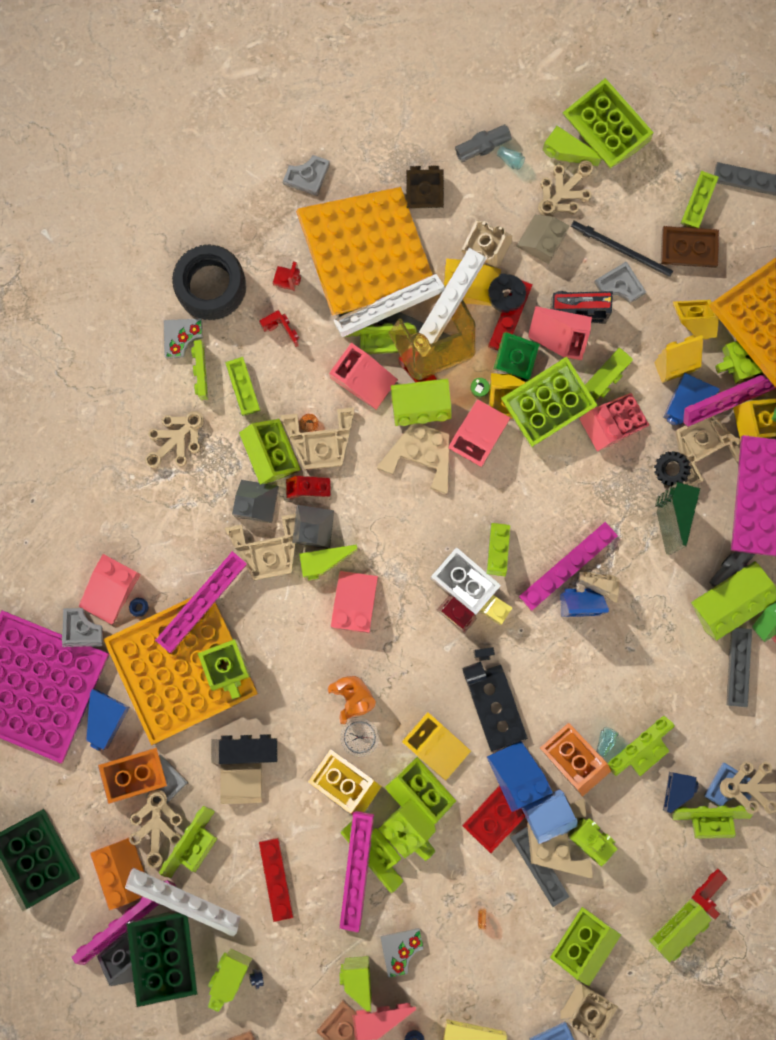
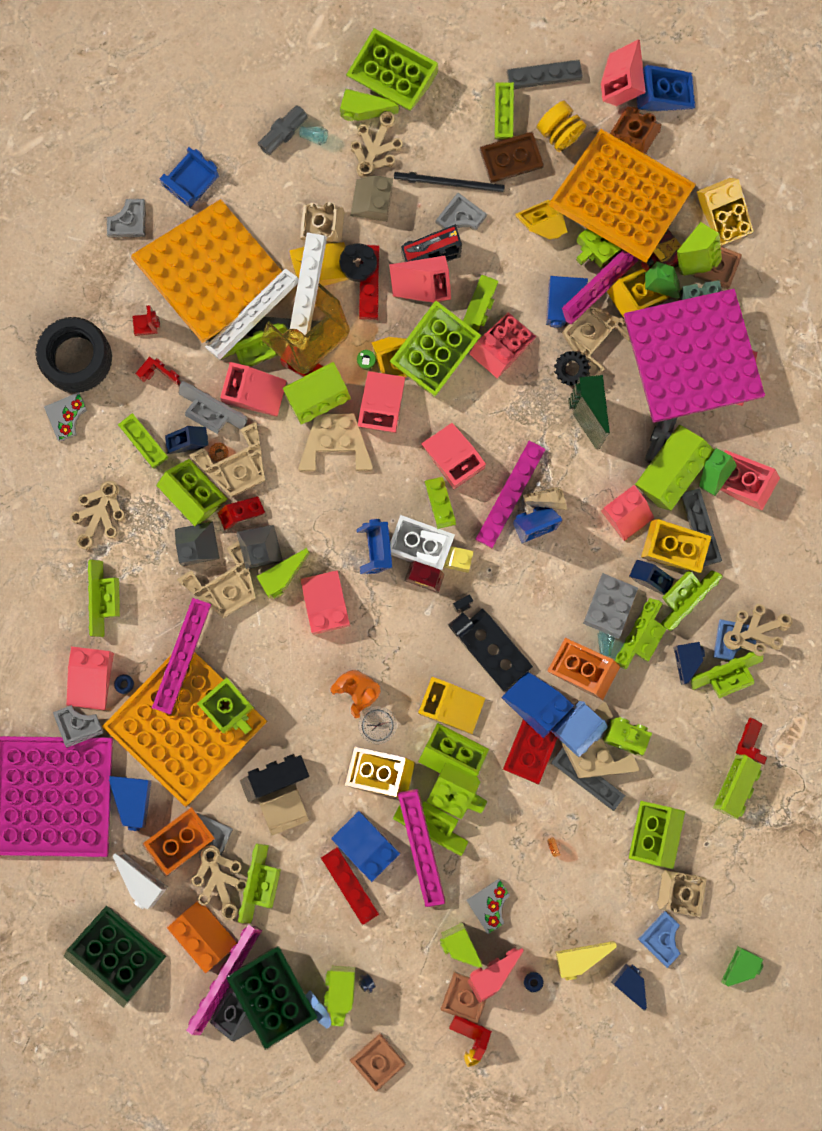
camera: 25 degrees left, 0 degrees up
(82, 800) = (140, 883): none -> white slope
(149, 518) = (103, 598): none -> lime bracket
(182, 902) = (271, 938): white plate -> none
(199, 370) = (96, 441): lime plate -> none
(202, 986) = (320, 1011): none -> light blue slope
(283, 400) = (186, 439): none -> dark blue slope
(305, 848) = (365, 846): none -> blue slope
(314, 381) = (209, 411): none -> light grey bracket
(380, 156) = (190, 177): none -> blue panel
(424, 568) = (378, 546): none -> blue panel
(425, 187) = (243, 191): dark brown plate -> none
(516, 356) = (389, 318): green plate -> none
(528, 509) = (454, 455): none -> coral slope
(623, 709) = (610, 605): none -> light grey plate
(673, 697) = (651, 577): none -> dark blue slope
(674, 627) = (628, 513): none -> coral slope
(680, 358) = (540, 264): yellow slope -> none
(700, 727) = (686, 595): none -> lime bracket
(708, 676) = (676, 546): none -> yellow slope
(748, 234) = (561, 126): none -> yellow wheel

